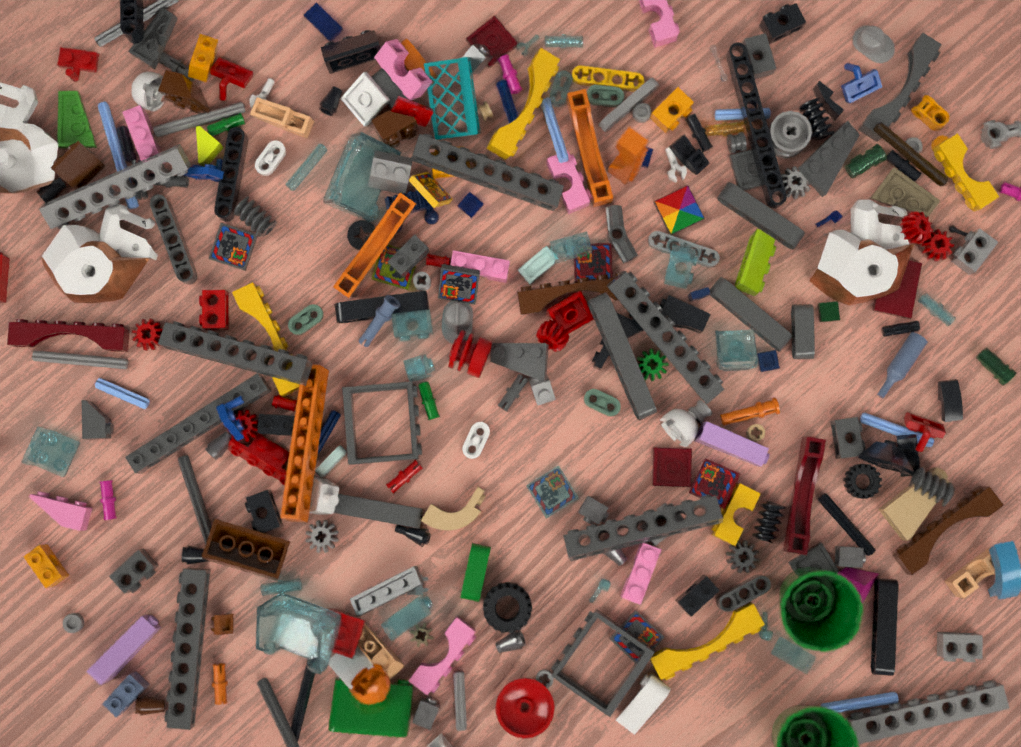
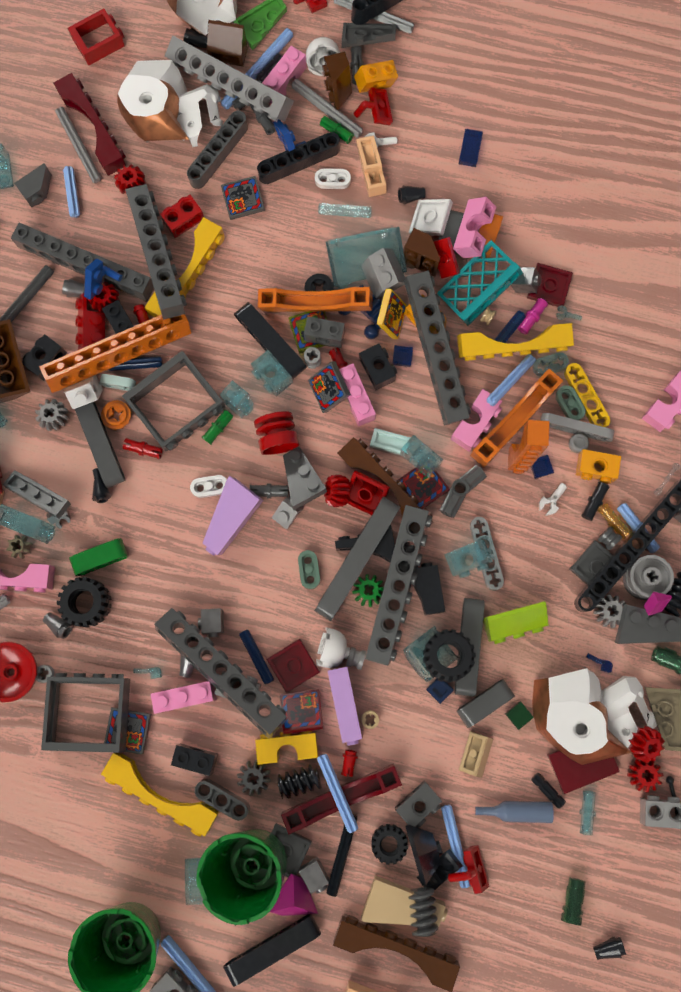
camera: 65 degrees right, 5 degrees down
(207, 147) = (307, 126): neon yellow slope -> none
(254, 218) = (276, 196): dark grey piece -> none
(304, 317) = (221, 289): sand green plate -> none
(350, 51) = (459, 180): black slope -> none
(353, 473) = (107, 414): none -> orange gear
(383, 315) = (261, 342): sand blue pin -> none
(451, 521) = (125, 503): tan arch -> none
(456, 317) = (302, 405): light grey piece -> none
(475, 239) = (378, 377): none -> black brick
(513, 434) = (231, 514): none -> lavender slope
(552, 492) = (207, 577): clear light blue tile -> none
(563, 41) = (591, 340): clear light blue pin -> none
(644, 492) = (256, 657): none -> dark blue axle
(644, 703) = (73, 774): white door -> none
(679, 210) = (517, 528): tile -> none
(686, 153) = (569, 505): black slope -> none
(699, 294) = (456, 591): dark blue tile -> none
(756, 320) = (461, 644): none -> black tyre
(758, 410) = (392, 709): orange pin -> none
(760, 215) = (561, 601): dark grey beam -> none
(765, 634) = (199, 843): clear light blue hand -> none
(779, 472) = (349, 762): none -> red pin
(798, 496) = (337, 793): none -> light blue axle
(814, 142) = (656, 603): none -> dark pink slope
(836, 366) = (476, 754): none -> tan slope
(951, 400) = (515, 879): black slope -> none

